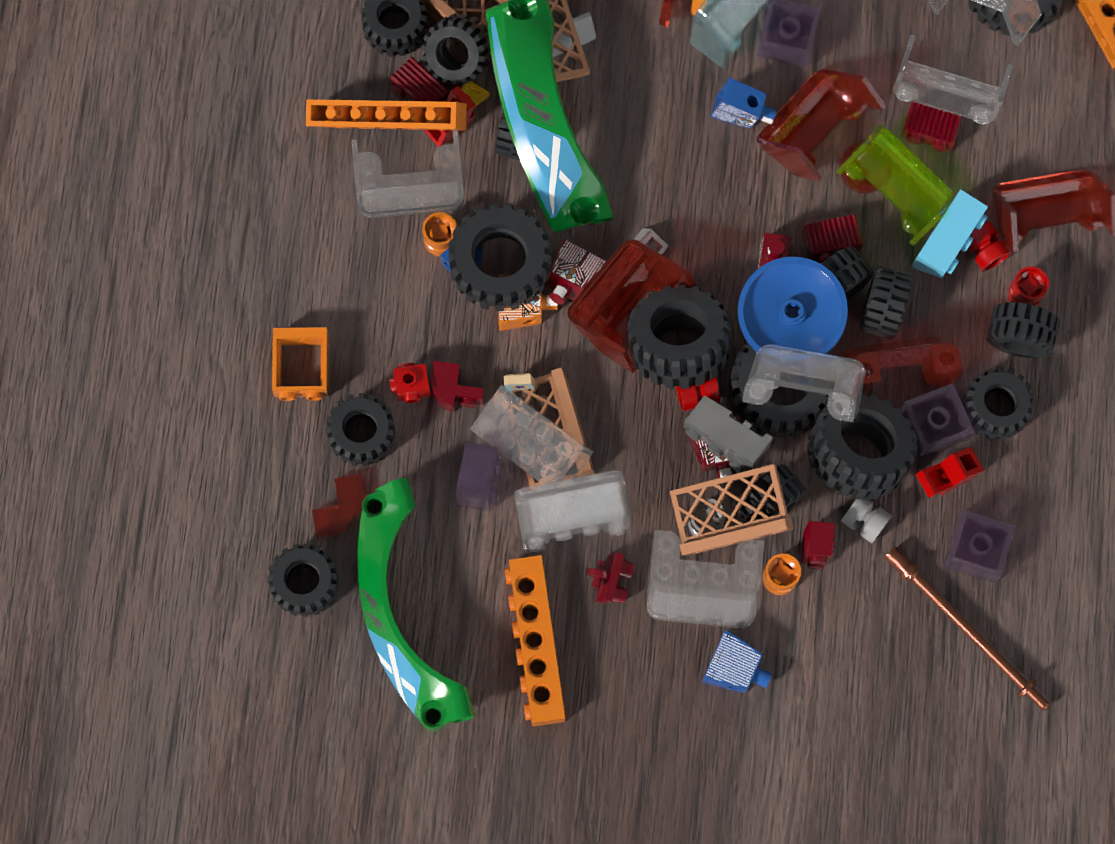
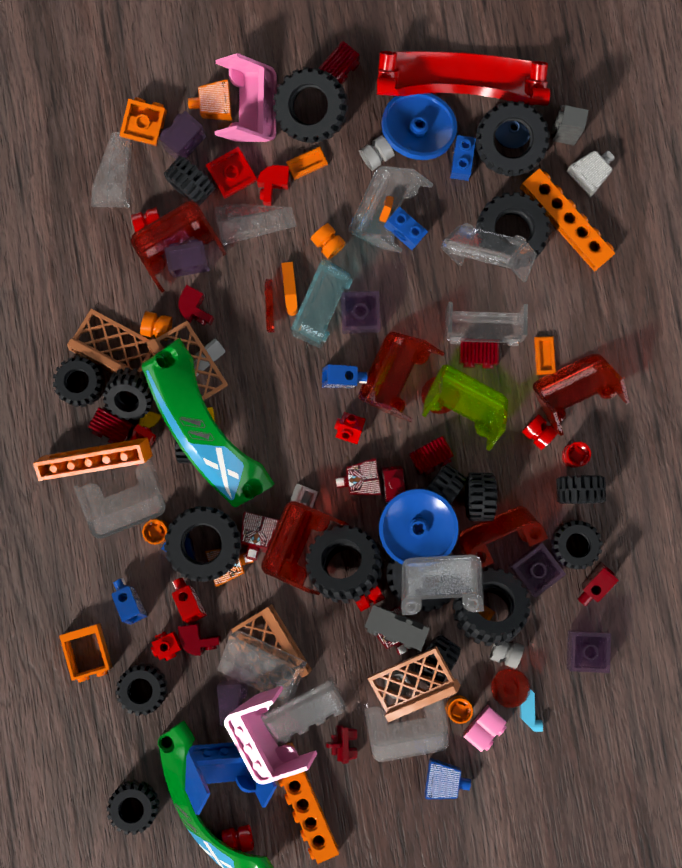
camera: 15 degrees left, 10 degrees up
(337, 518) = (143, 754): clear red tile -> none
(376, 314) = (131, 609): none -> blue torso
(438, 659) = (239, 839): none -> red wheel
(450, 558) = (219, 764): none -> blue windscreen
(456, 334) = (190, 609): none -> red torso
(497, 526) = (256, 745): none -> bright pink windscreen
(519, 381) = (242, 624): tan tile -> none
(731, 243) = (361, 479): none -> torso
(734, 172) = (349, 427): none -> red brick
(809, 612) = (485, 728): none -> bright pink brick
(817, 544) = (478, 683): dark red brick -> none
(859, 567) = (510, 687): none -> clear red tile
(875, 603) = (527, 713): none -> medium azure piece
(910, 572) = (546, 680): copper bar -> none
(950, 473) = (555, 604): red brick -> none
(951, 235) = (512, 442): medium azure slope -> none
(1018, 155) = (544, 355): none -> orange tile
(1022, 454) = (600, 577): none -> dark red torso

